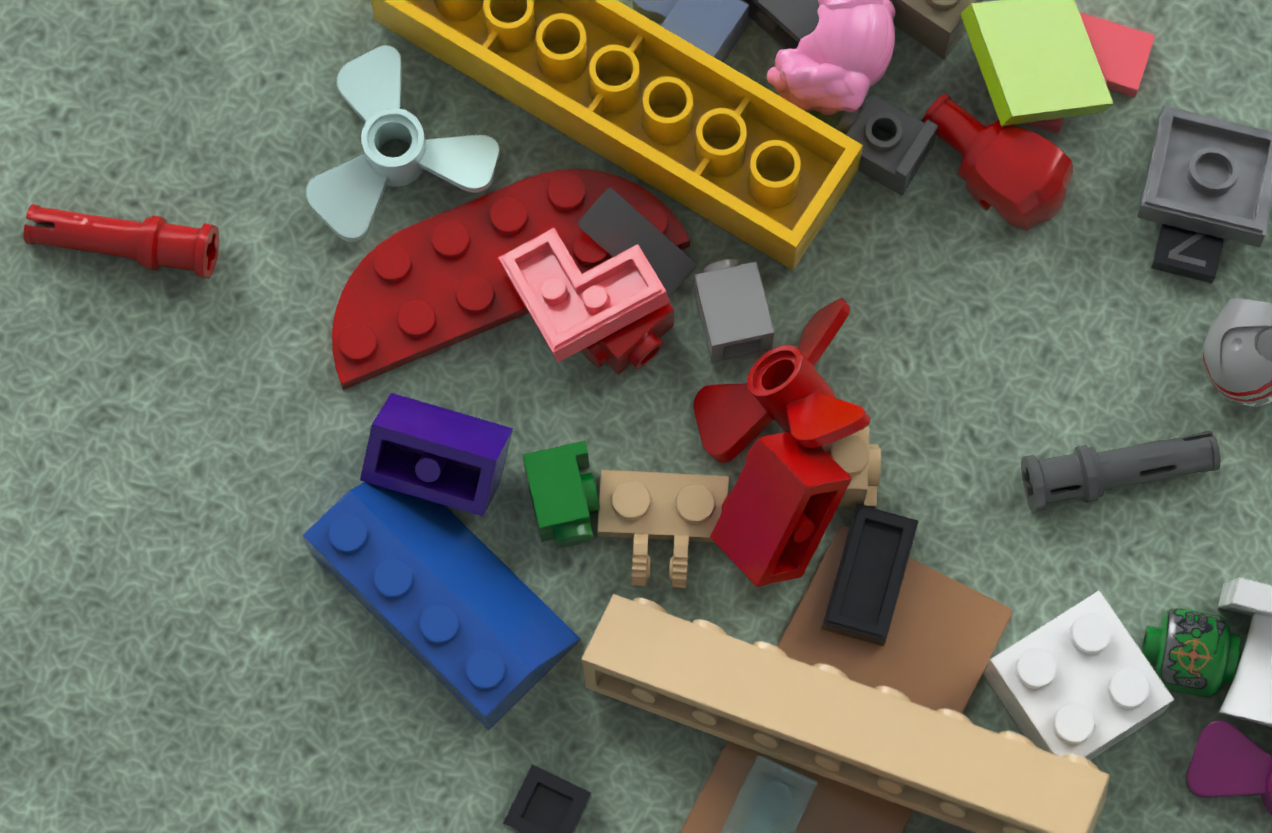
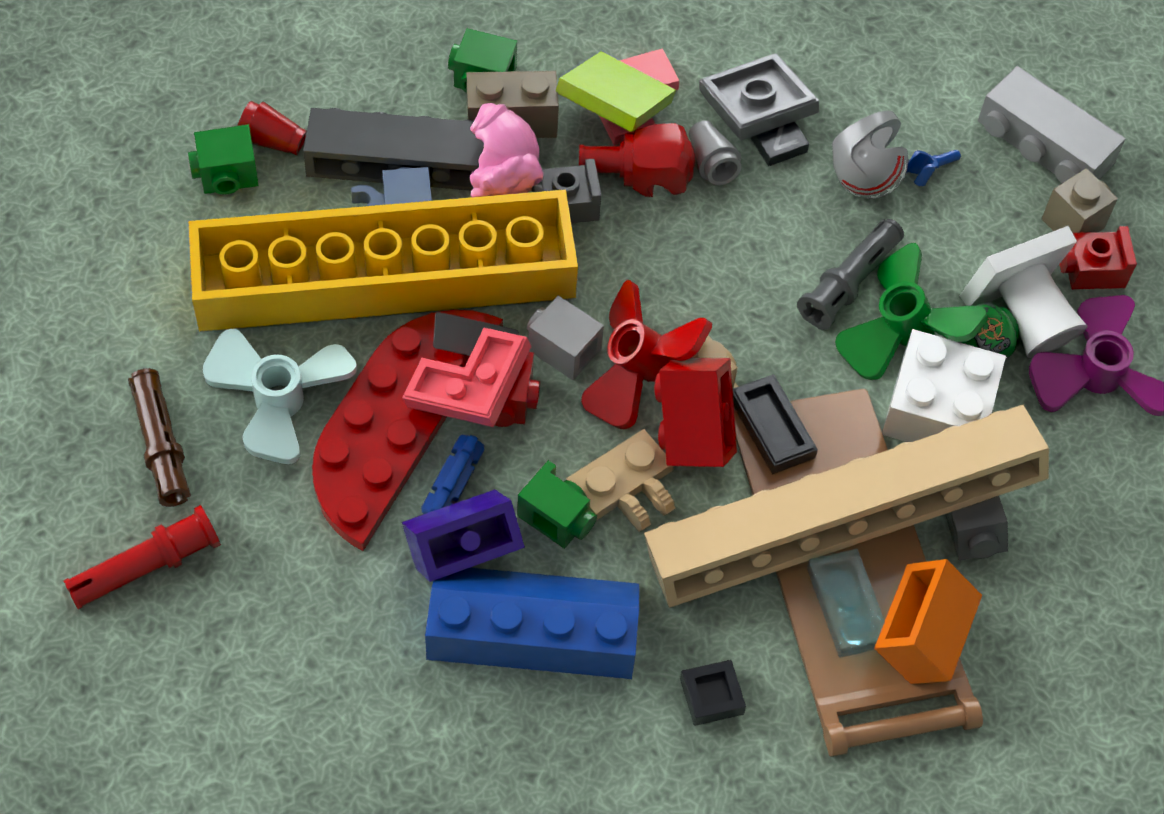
camera: 45 degrees left, 15 degrees down
(229, 136) = (162, 452): none -> reddish brown pin
(493, 378) = (454, 473): none -> blue axle
(1063, 568) = (903, 307): none -> green piece
(1094, 210) = (714, 154): none -> light grey cone

